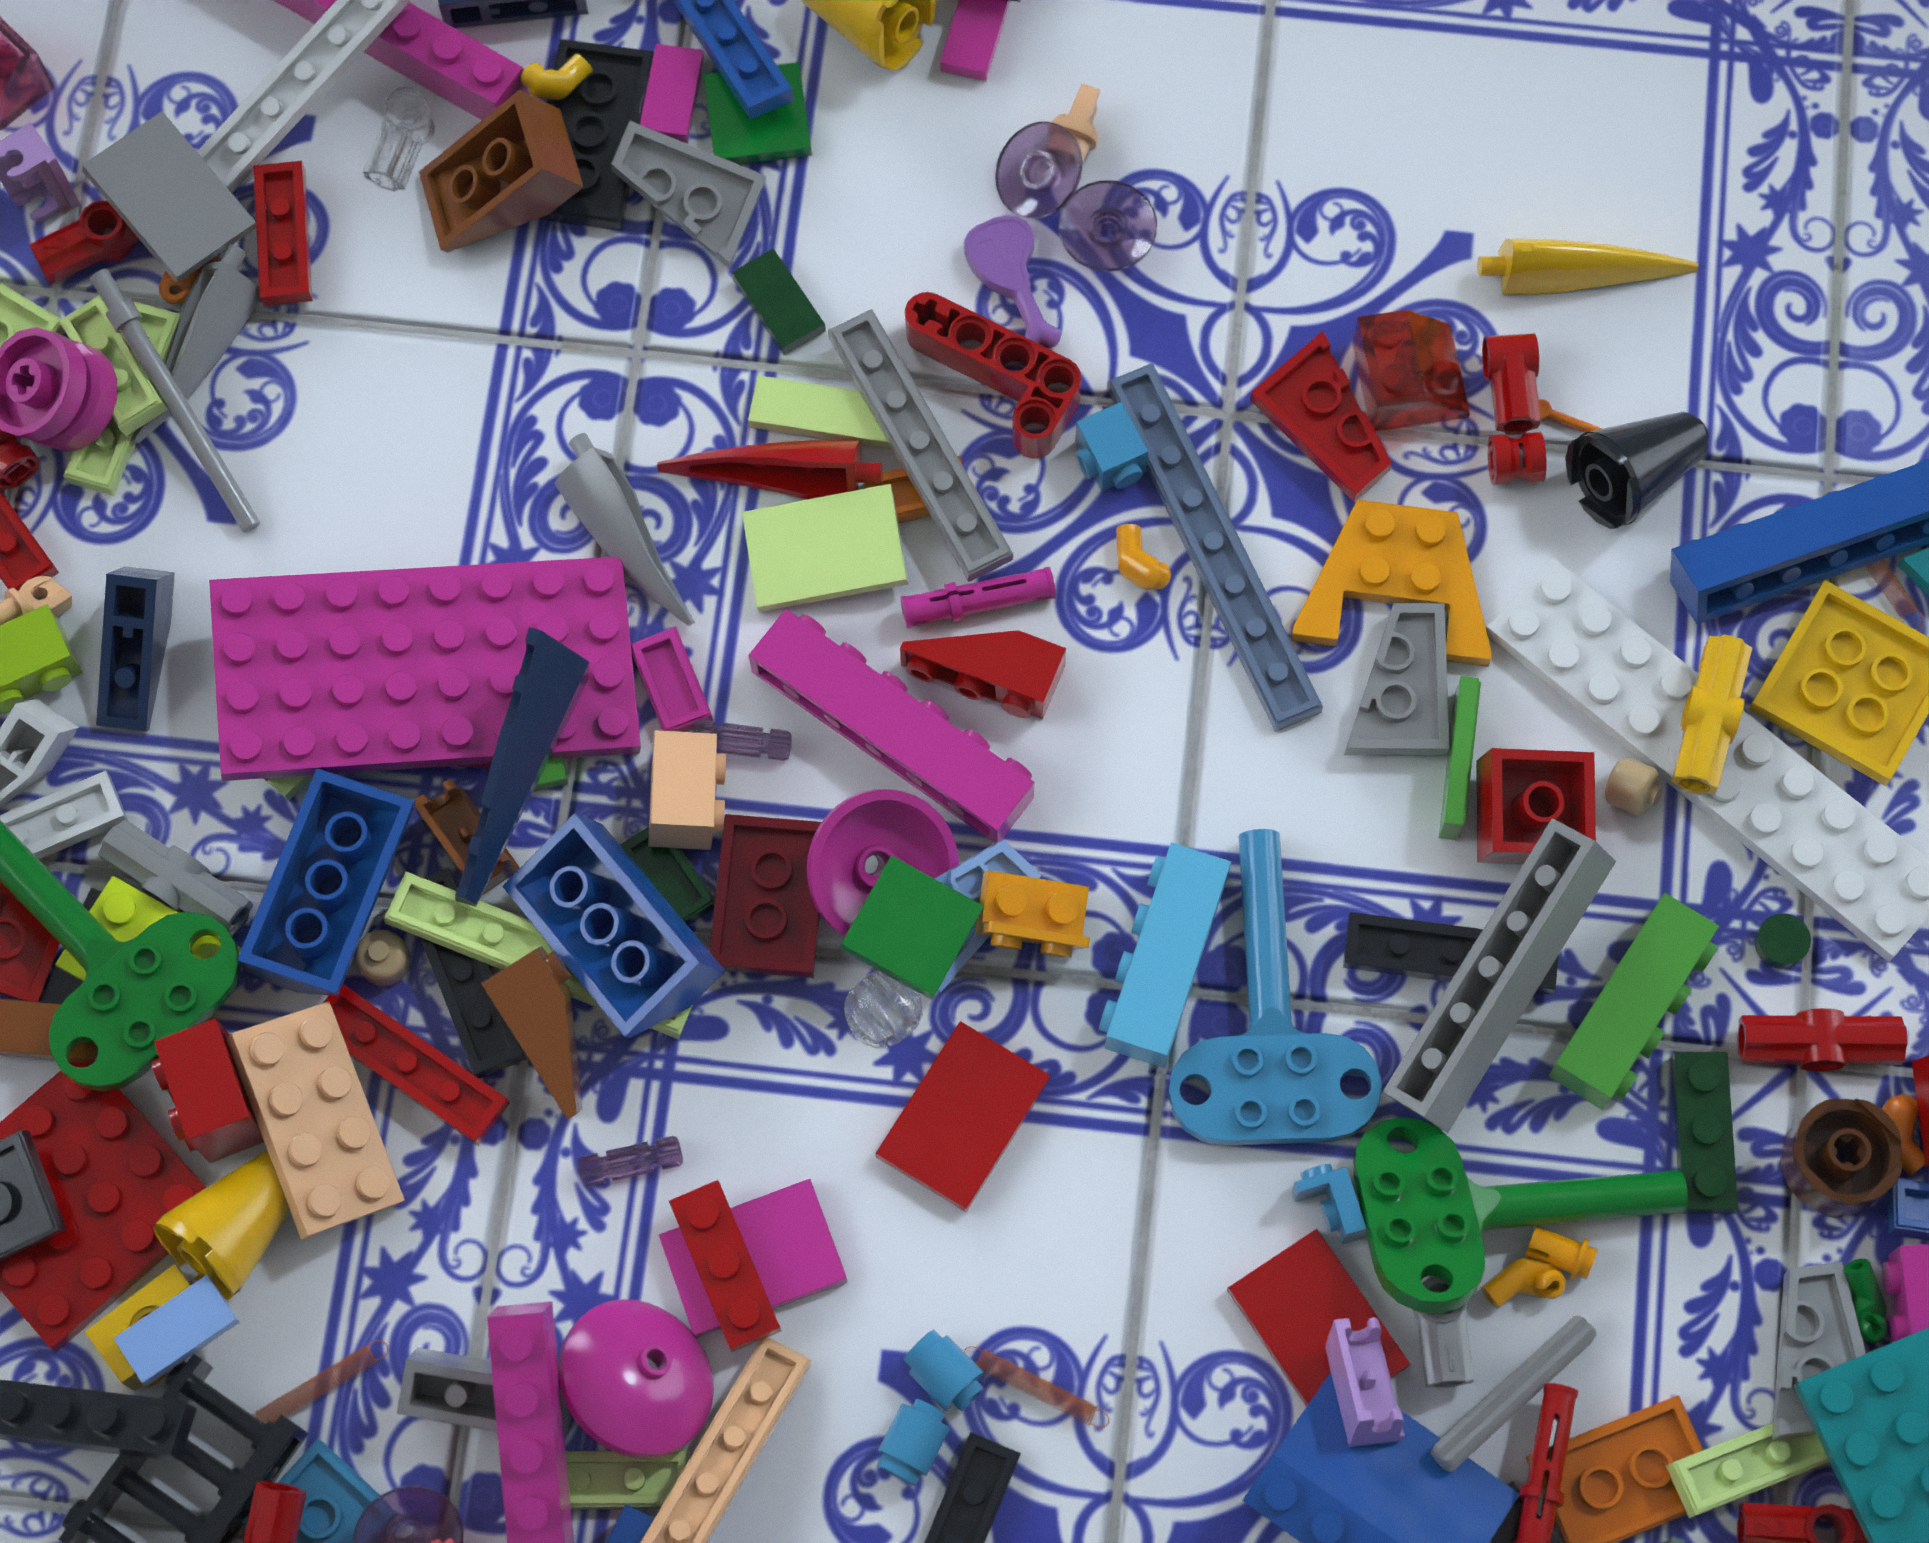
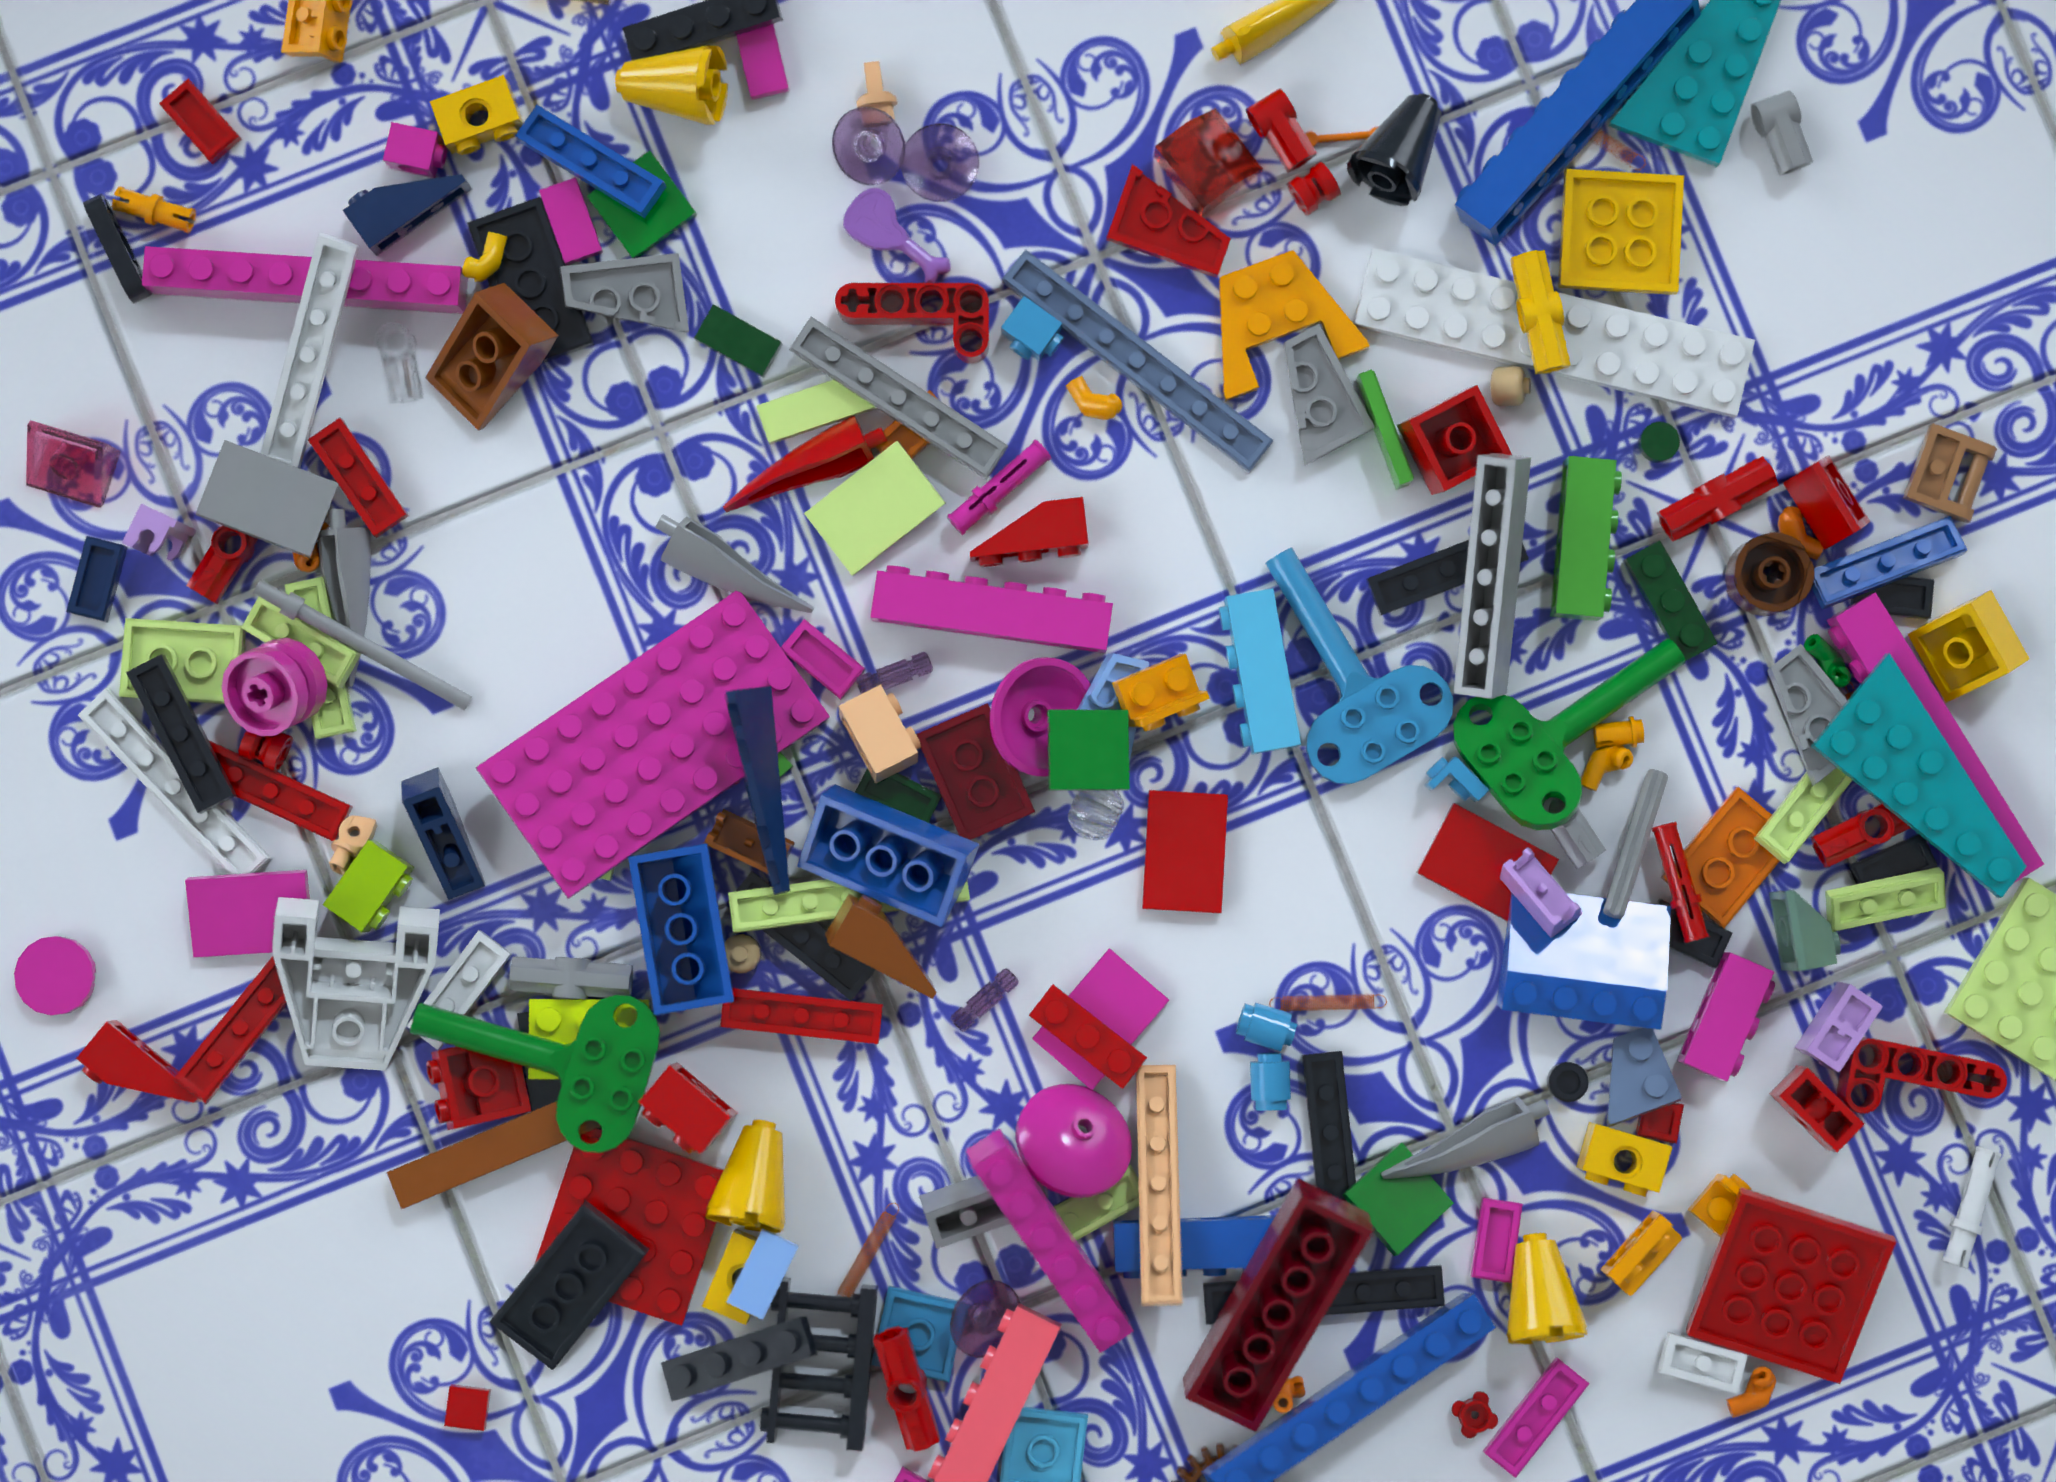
camera: 30 degrees left, 15 degrees up
(315, 1119) = (767, 1089): light nougat plate -> none

